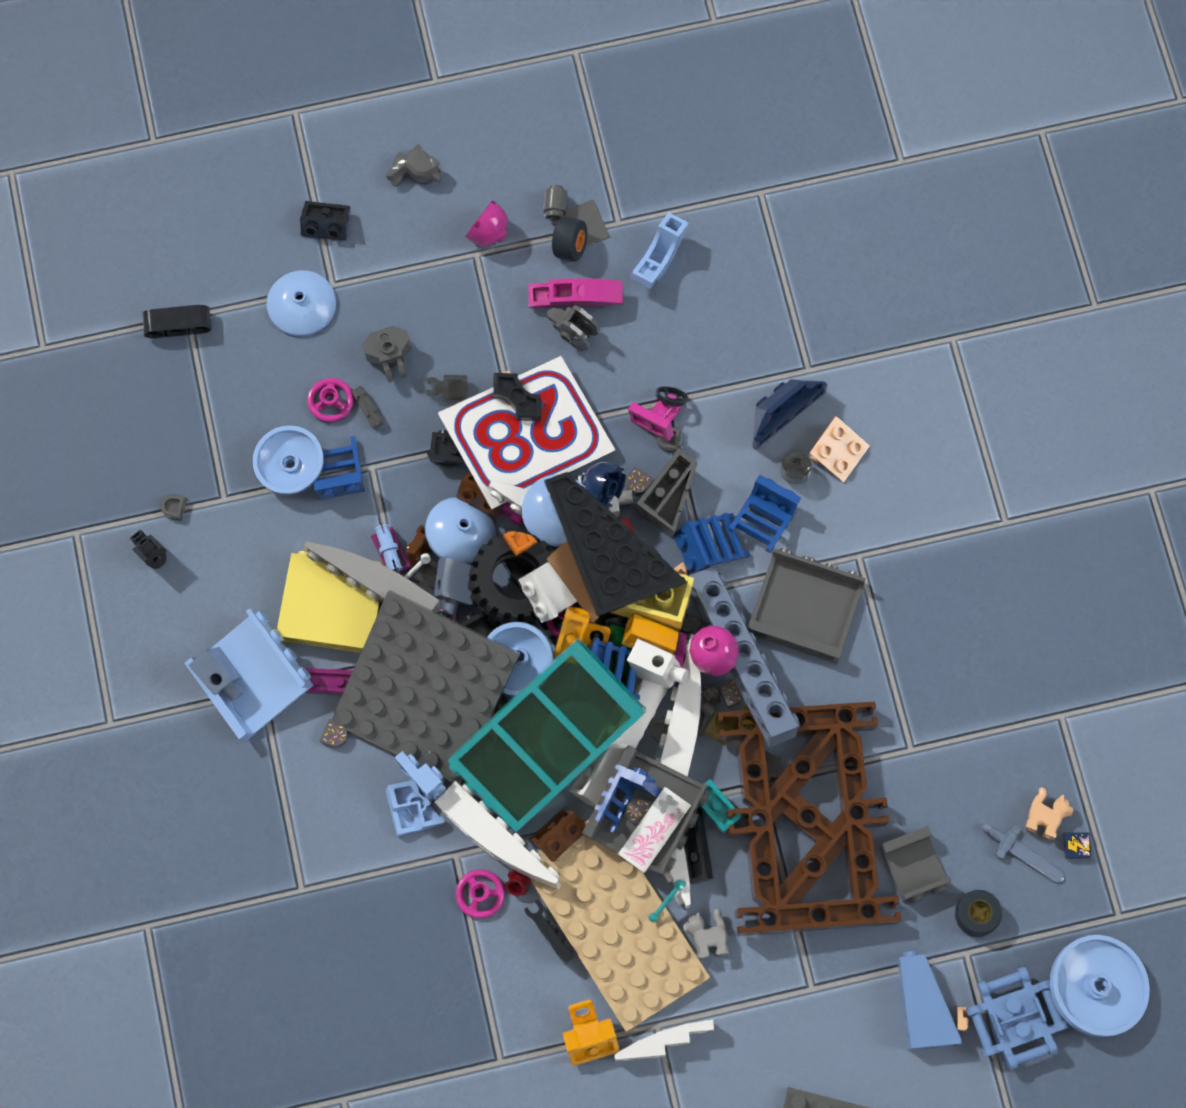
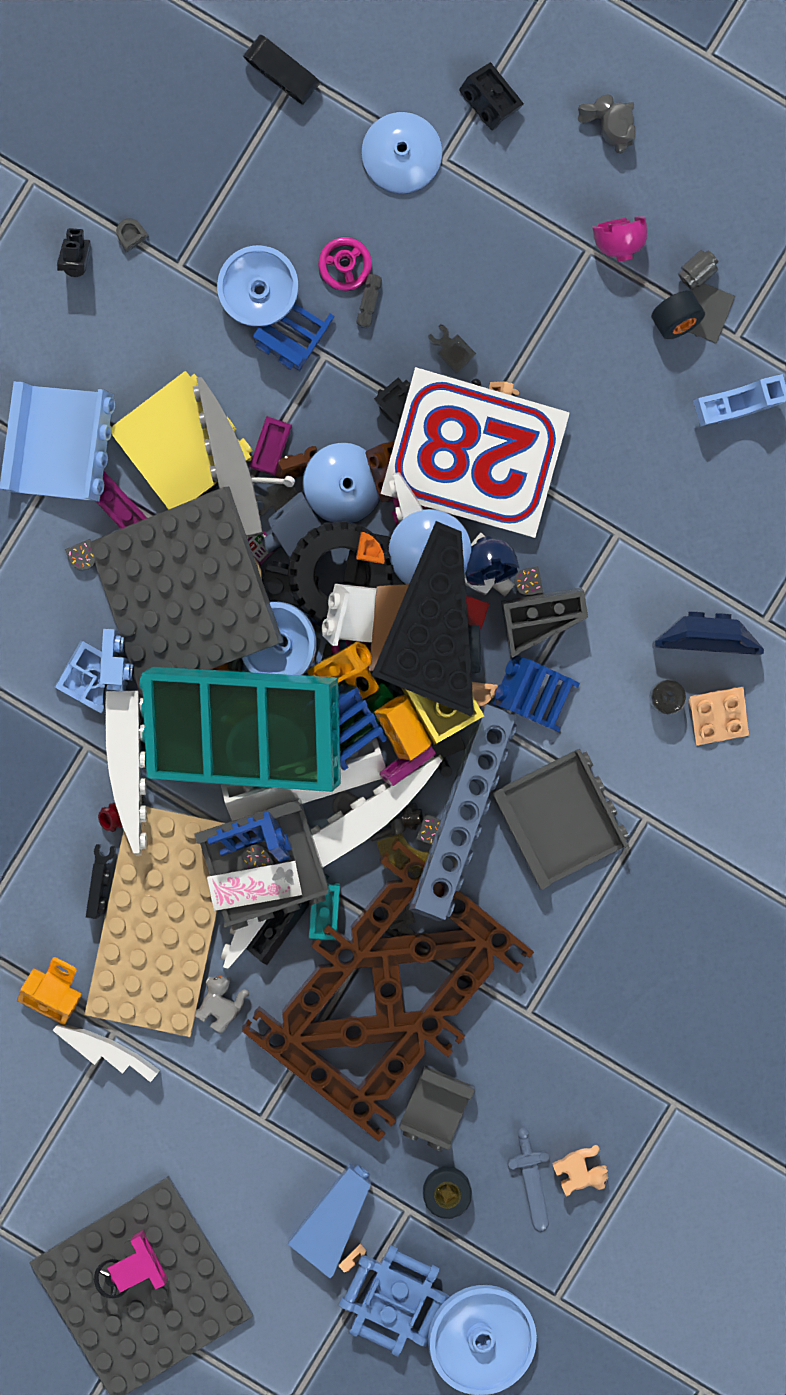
camera: 45 degrees right, 15 degrees up
(211, 667) = (31, 417): sand blue torso -> none
(388, 350) = (431, 271): dark grey hinge -> none
(388, 548) = (268, 442): light blue pin -> none
(470, 878) = (79, 776): dark pink piece -> none
(525, 404) = (495, 404): black tile -> none
(558, 833) = (180, 810): reddish brown bracket -> none
(574, 325) = (605, 395): dark grey hinge -> none
(576, 292) = (635, 369): dark pink slope -> none
(656, 665) = (378, 755): white torso -> none
(660, 417) = (605, 542): dark pink piece -> none
(673, 444) = (589, 570): dark grey tile -> none
(679, 885) = (233, 946): teal hinge -> none
(714, 650) = (442, 791): dark pink cylinder -> none
(772, 502) = (617, 706): blue plate -> none
(1077, 845) = (580, 1216): tile -> none

